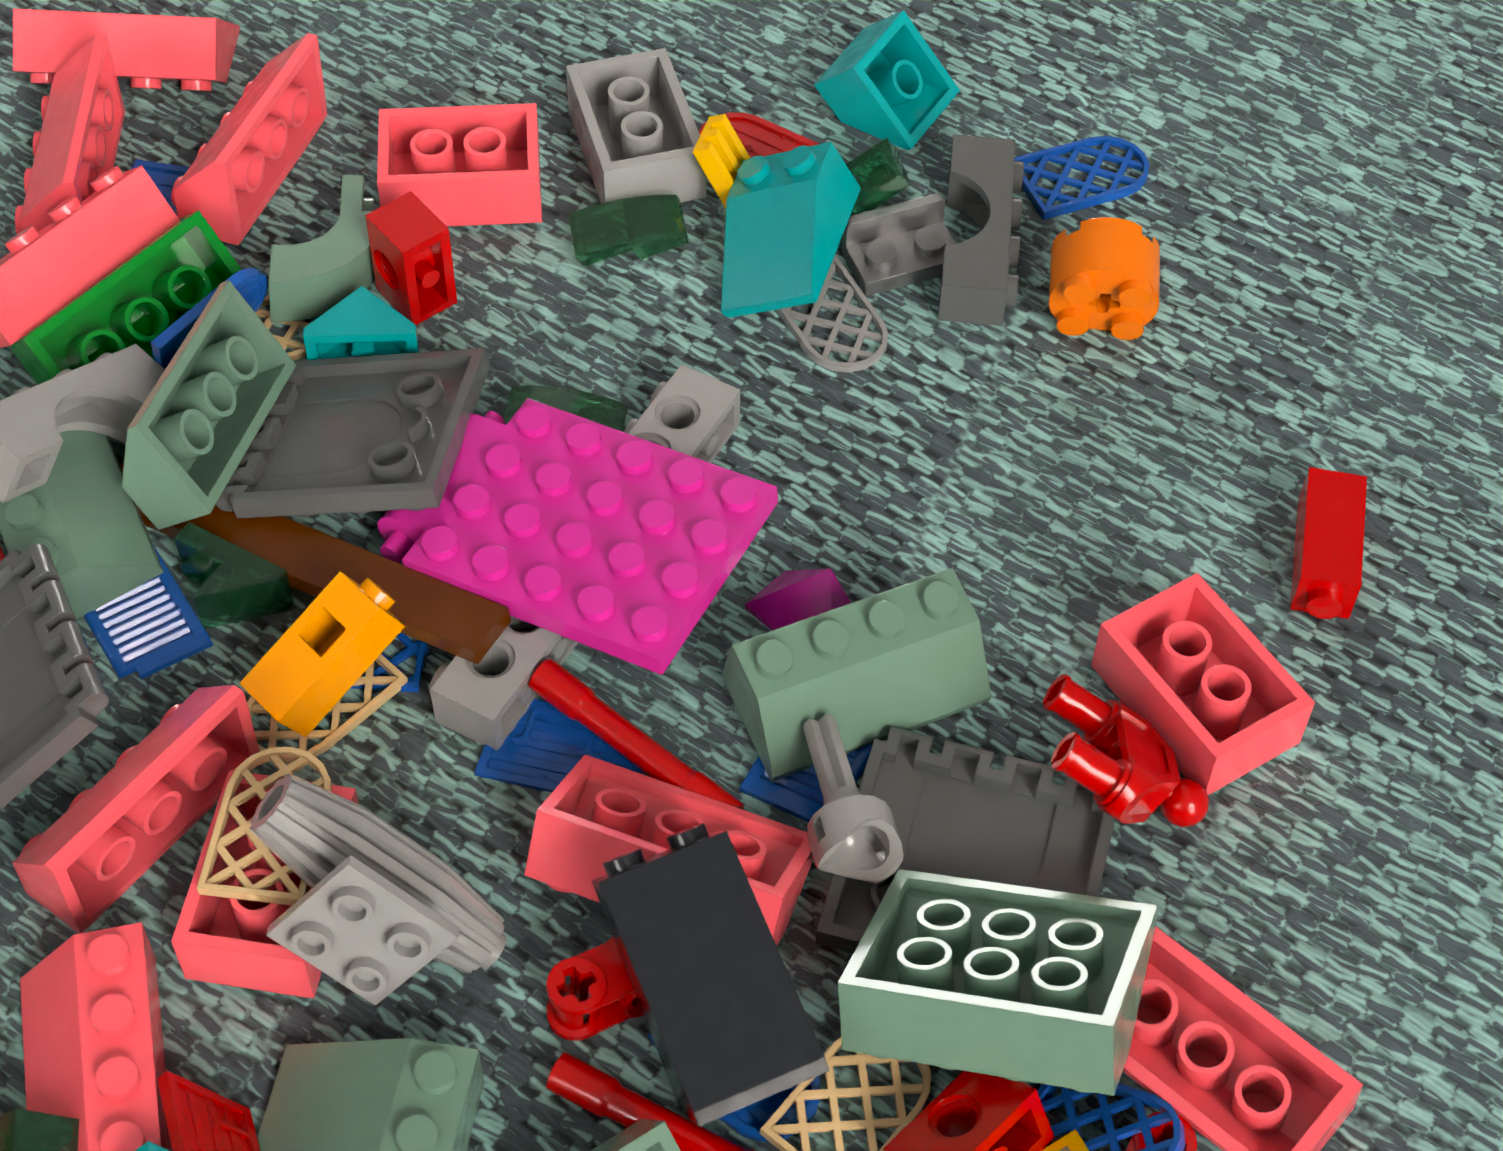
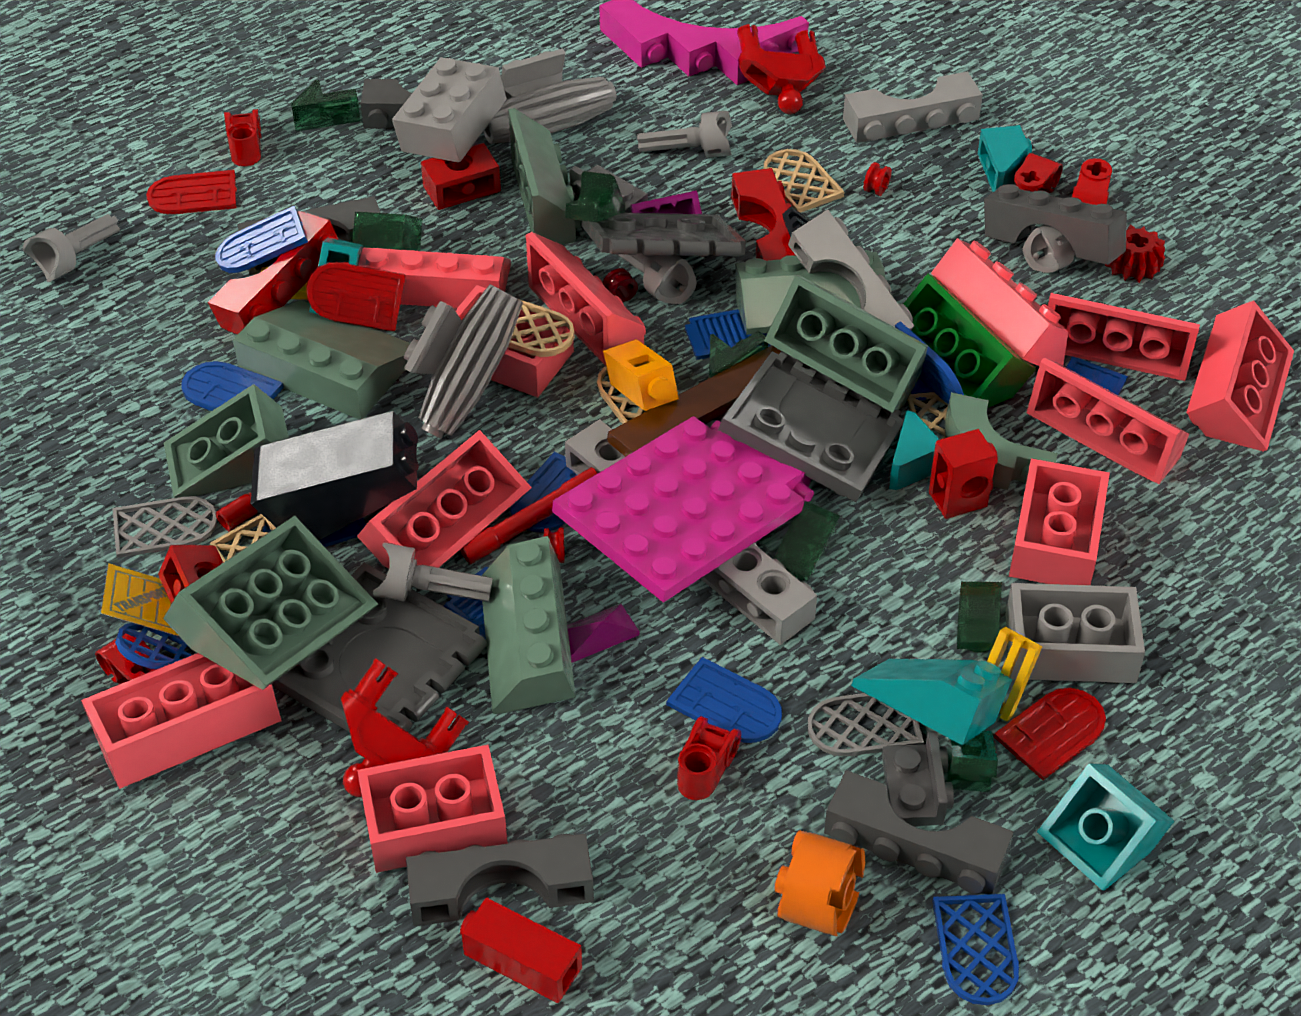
camera: 110 degrees right, 5 degrees down
(73, 774) = (622, 278): none -> dark red bush
(680, 700) = (557, 541): none -> red bush
(858, 454) = (727, 701): none -> blue window
(970, 439) = (705, 758): none -> red piece
(1205, 536) = (447, 880): none -> dark grey arch

